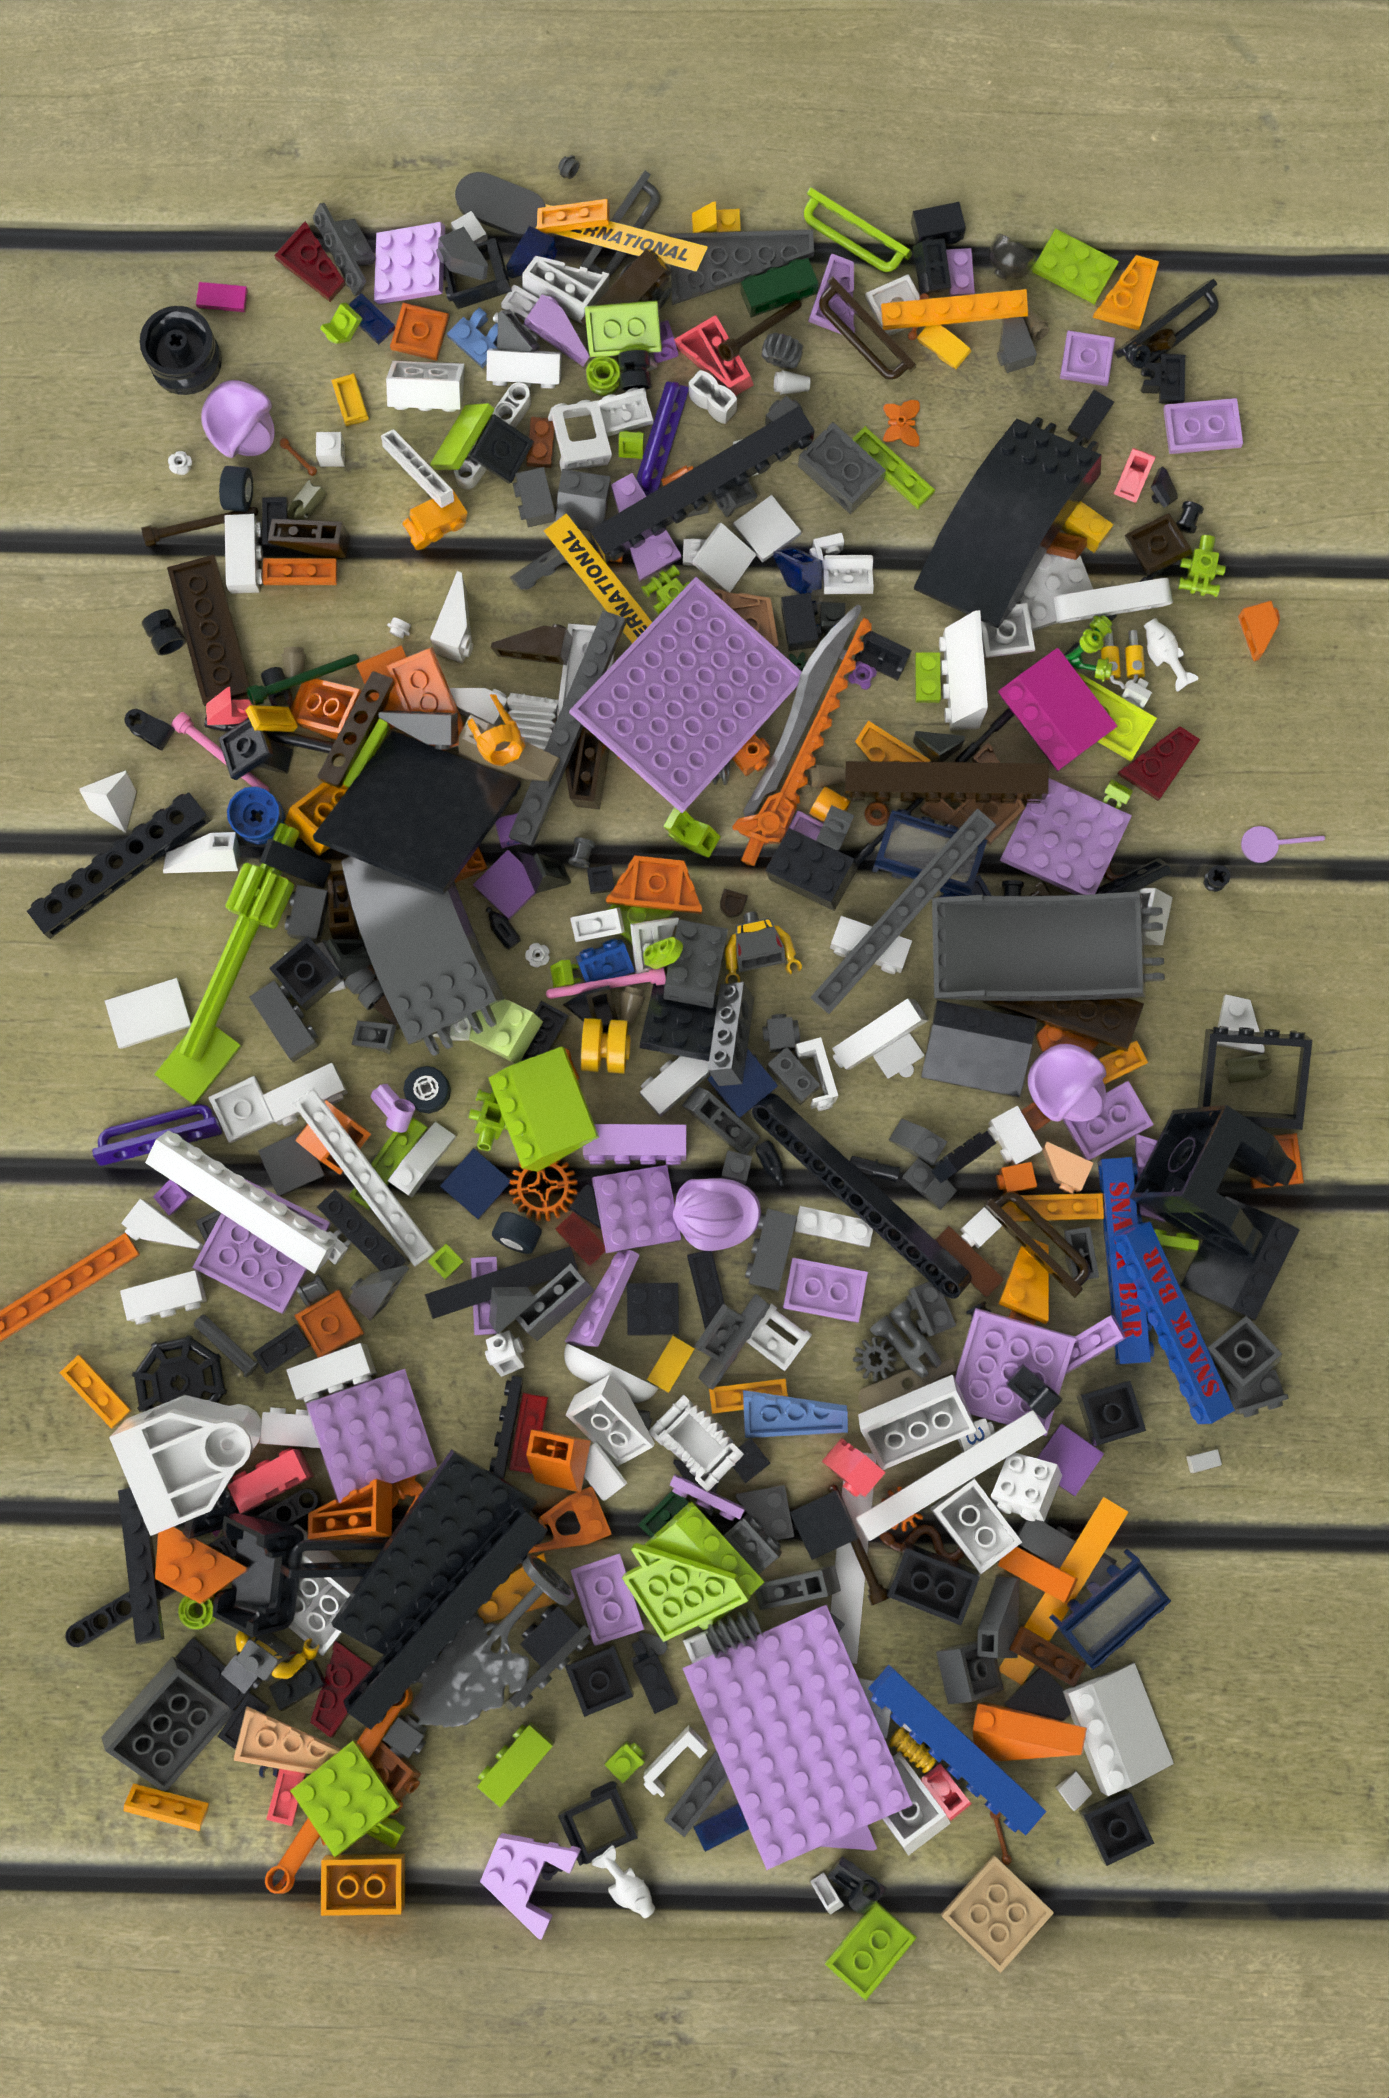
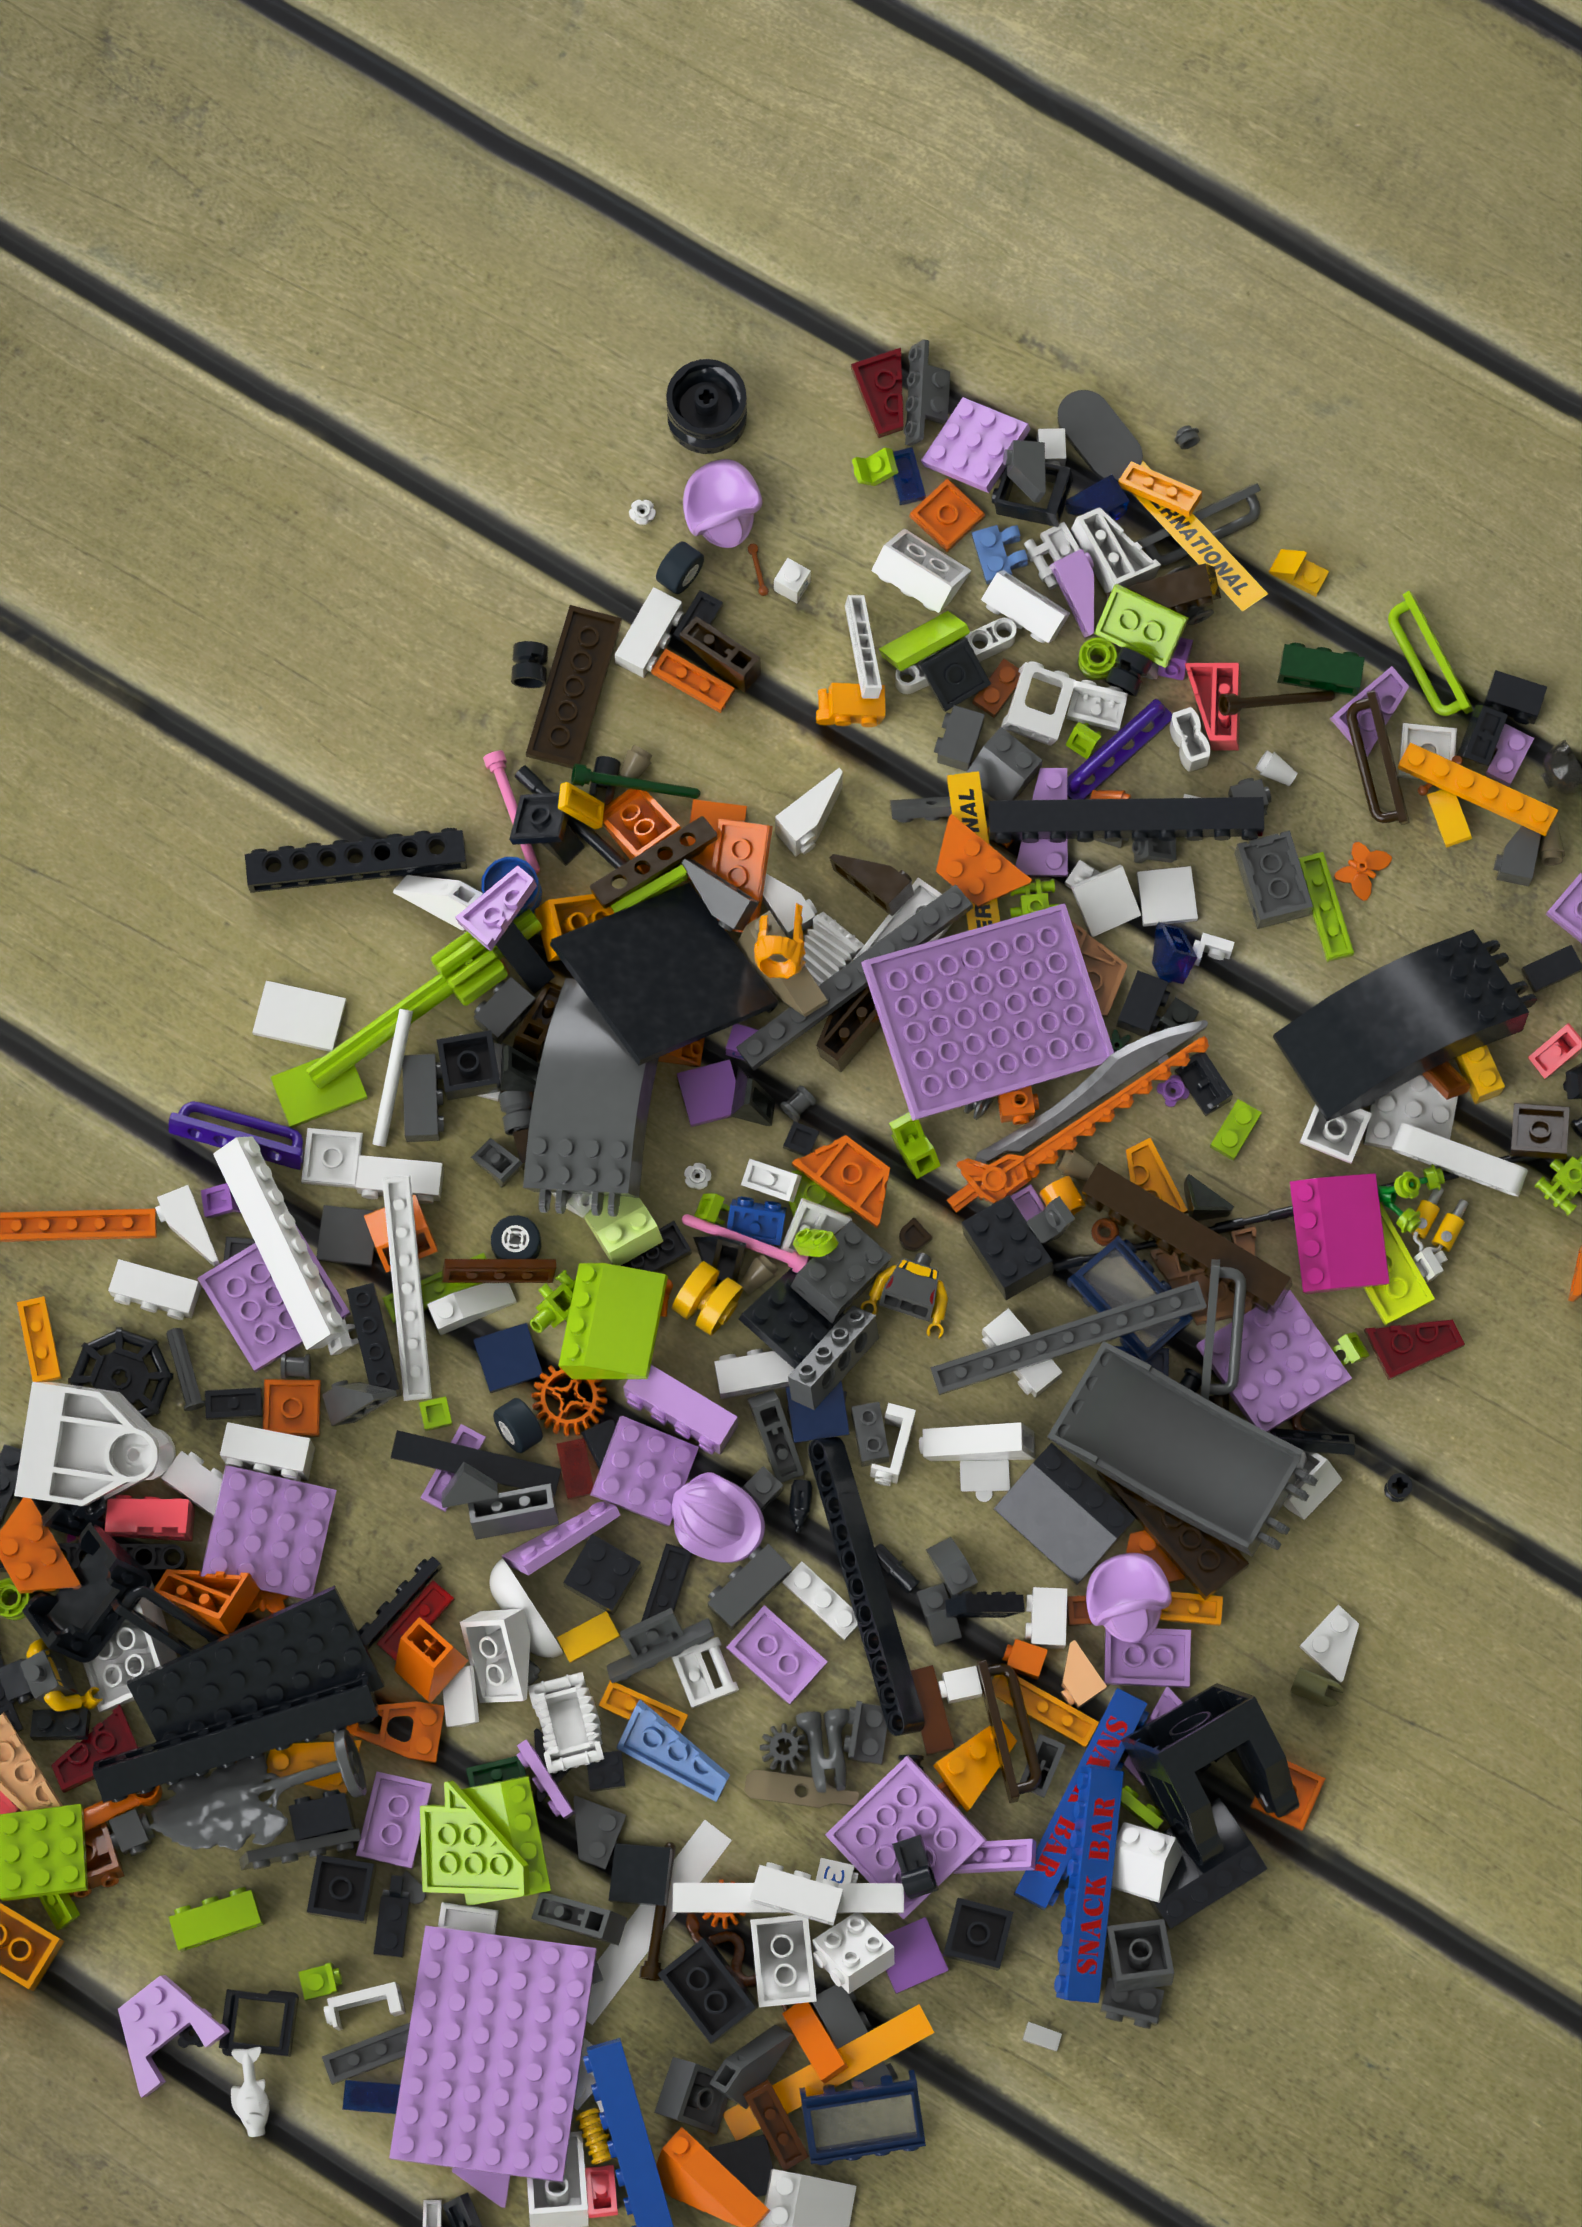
camera: 30 degrees right, 5 degrees down
(111, 799) = (386, 794): white slope -> none
(151, 729) = (463, 751): black piece -> none
(152, 534) = (575, 566): dark brown piece -> none
(221, 297) = (777, 375): dark pink tile -> none
(224, 711) = (543, 773): coral slope -> none
(251, 1018) = (392, 1077): none -> white piece
(254, 836) = (495, 909): none -> lavender wing
(306, 501) = (738, 617): olive piece -> none
(350, 400) = (840, 543): yellow tile -> none
(397, 1110) = (475, 1242): lavender piece -> none
(399, 627) = (754, 788): white plate -> none
(428, 1120) = (499, 1270): none -> reddish brown tile
(503, 929) = (679, 1132): black piece -> none
(505, 1353) = (435, 1526): white brick -> none
(513, 334) = (1033, 570): dark grey slope -> none
(608, 587) = (976, 865): none -> orange wing
(733, 1632) = (492, 1920): dark grey piece -> none
(735, 257) = (1297, 616): dark grey wing -> none
(753, 1543) = (563, 1851): dark grey bracket -> none
(781, 1033) = (884, 1386): dark grey brick -> none
(782, 351) = (1284, 733): dark grey gear -> none
(848, 574) = (1217, 986): white bracket -> none
(854, 1468) = (700, 1838): coral wedge -> none
(916, 1422) = (786, 1830): white slope -> none
(958, 1469) = (796, 1893): none -> white brick
(964, 673) = (1268, 1146): white slope -> none
(990, 793) = (1236, 1333): none -> dark grey piece
(1164, 648) = (1485, 1235): white animal -> none
(1204, 1280) = (1144, 1862): none -> white slope
(1262, 844) = (1466, 1481): lavender piece -> none
(1269, 1037) = (1348, 1666): black window -> none

